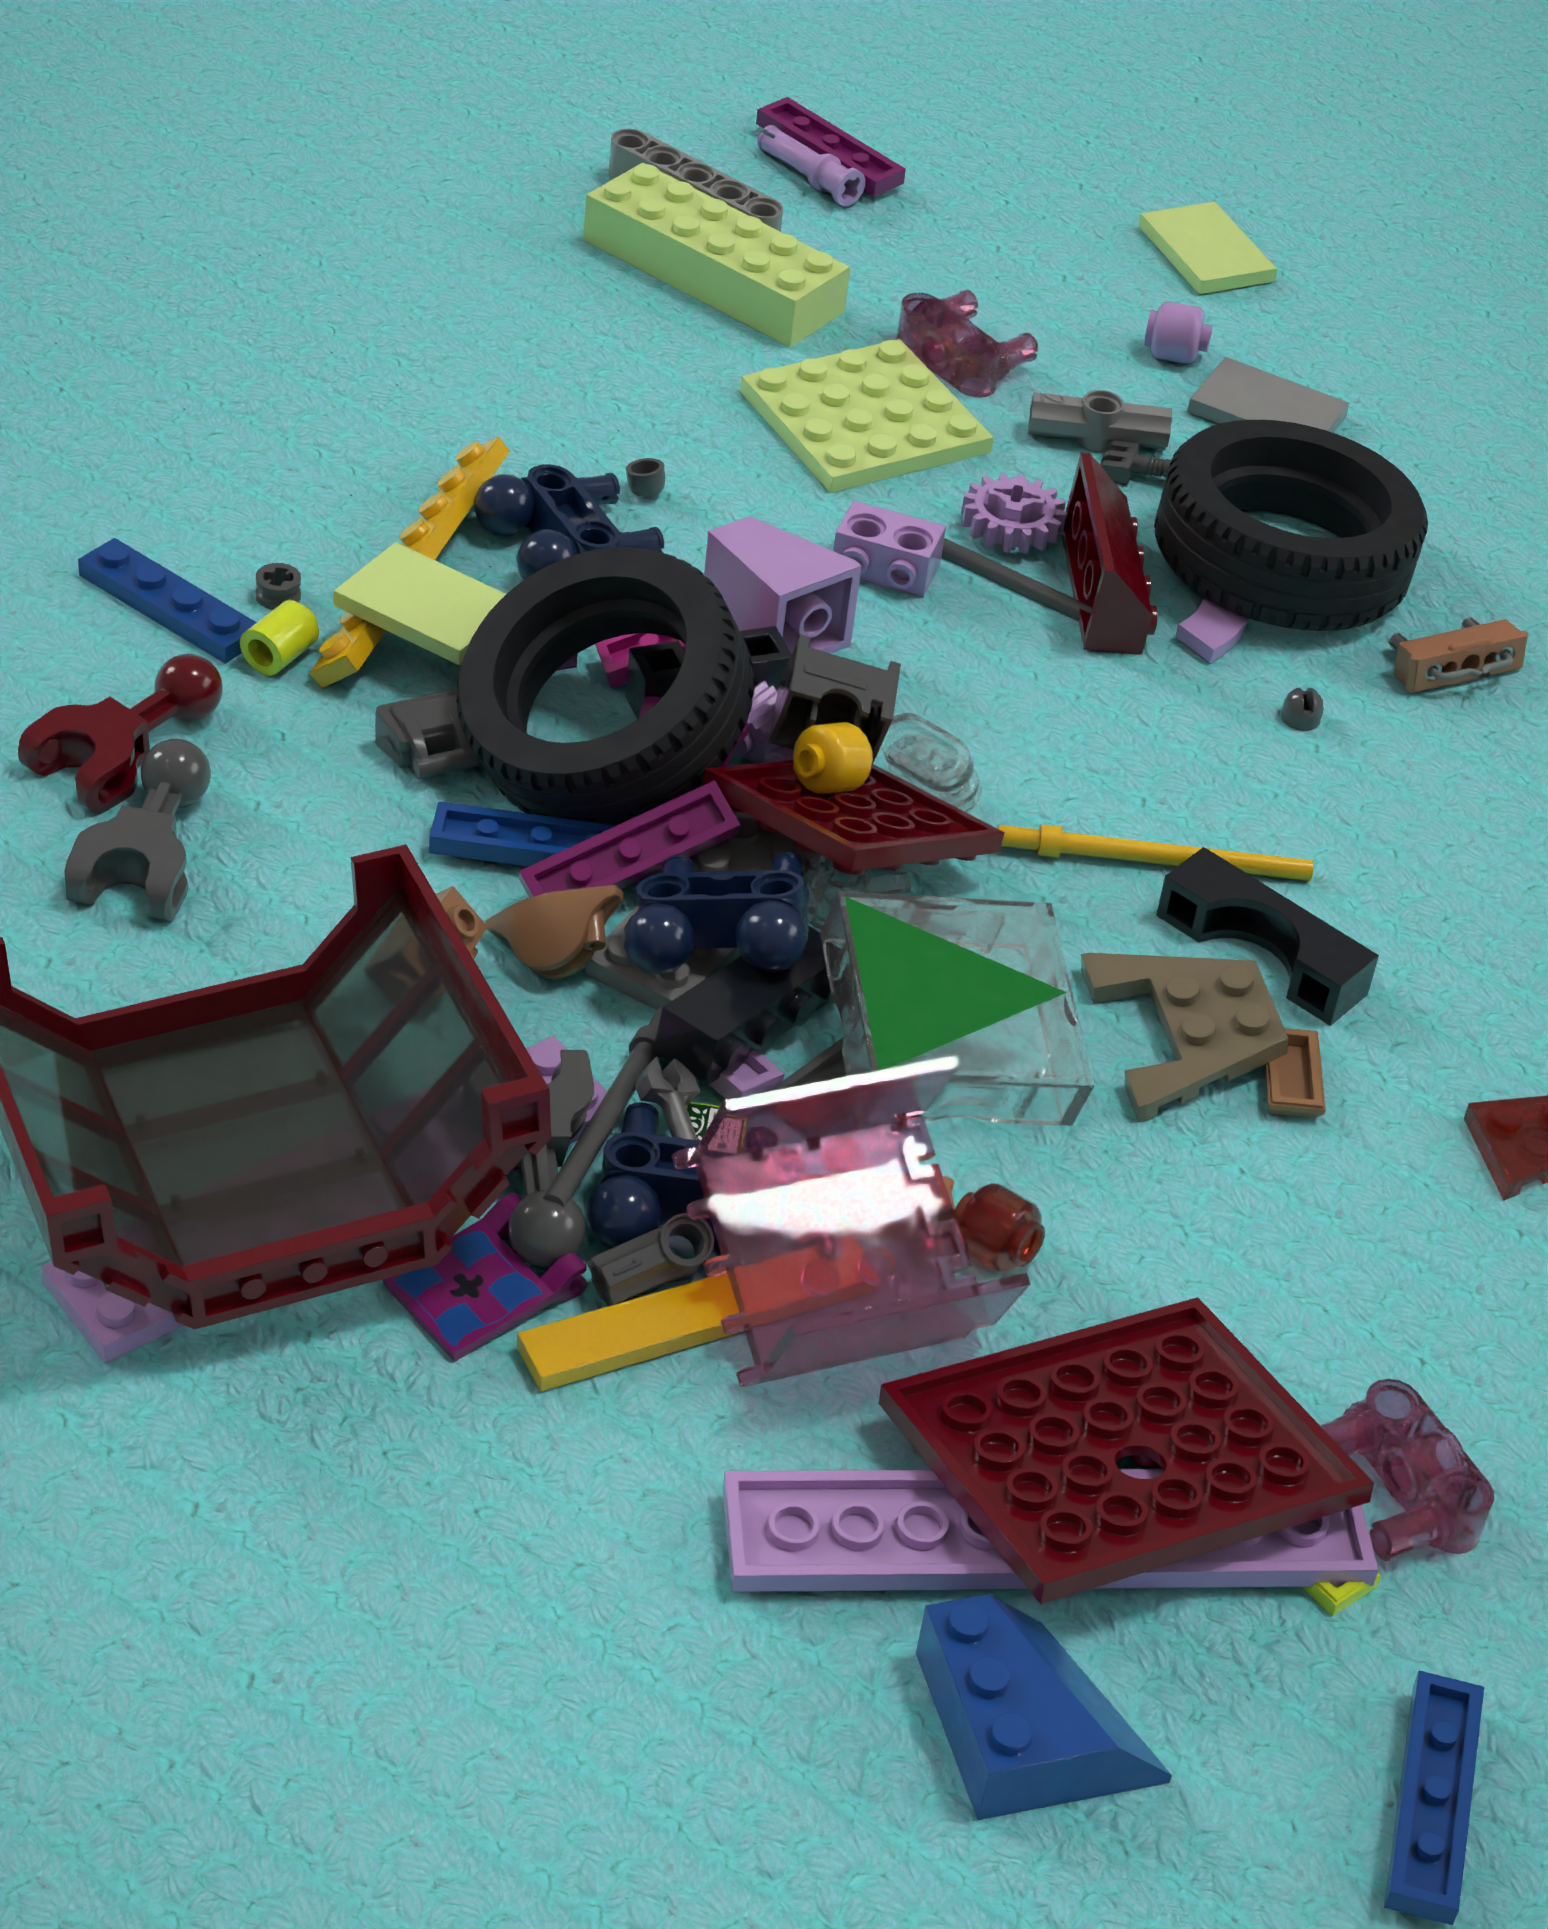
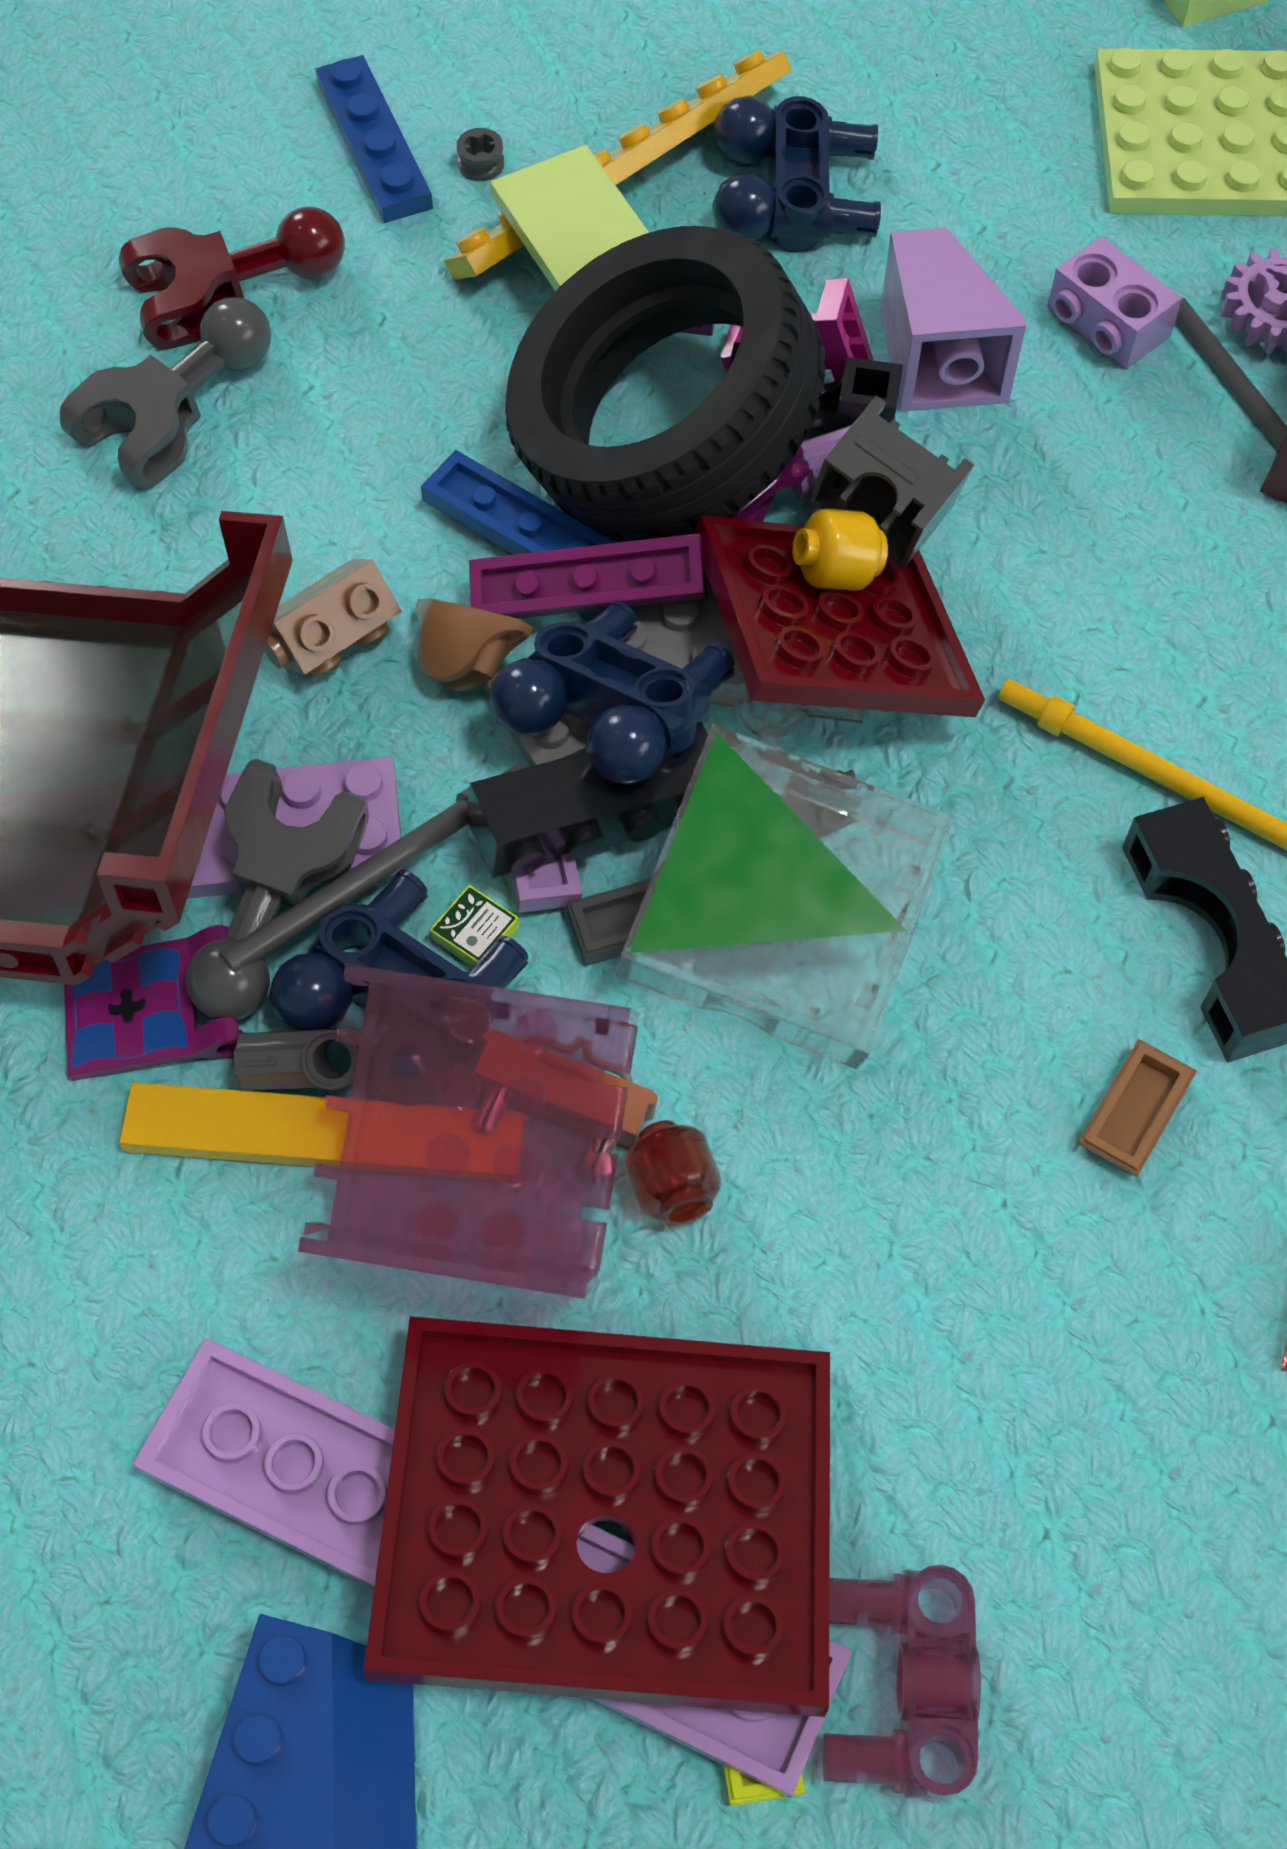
camera: 35 degrees right, 20 degrees up
(279, 637) = (437, 212): neon yellow brick -> none
(424, 735) = (485, 365): dark grey piece -> none
(646, 477) = (917, 139): dark grey hinge -> none
(671, 1093) = (439, 887): flat silver bar -> none
(932, 760) = (973, 582): clear brick -> none
(1211, 1013) = (1084, 1012): dark tan wing -> none

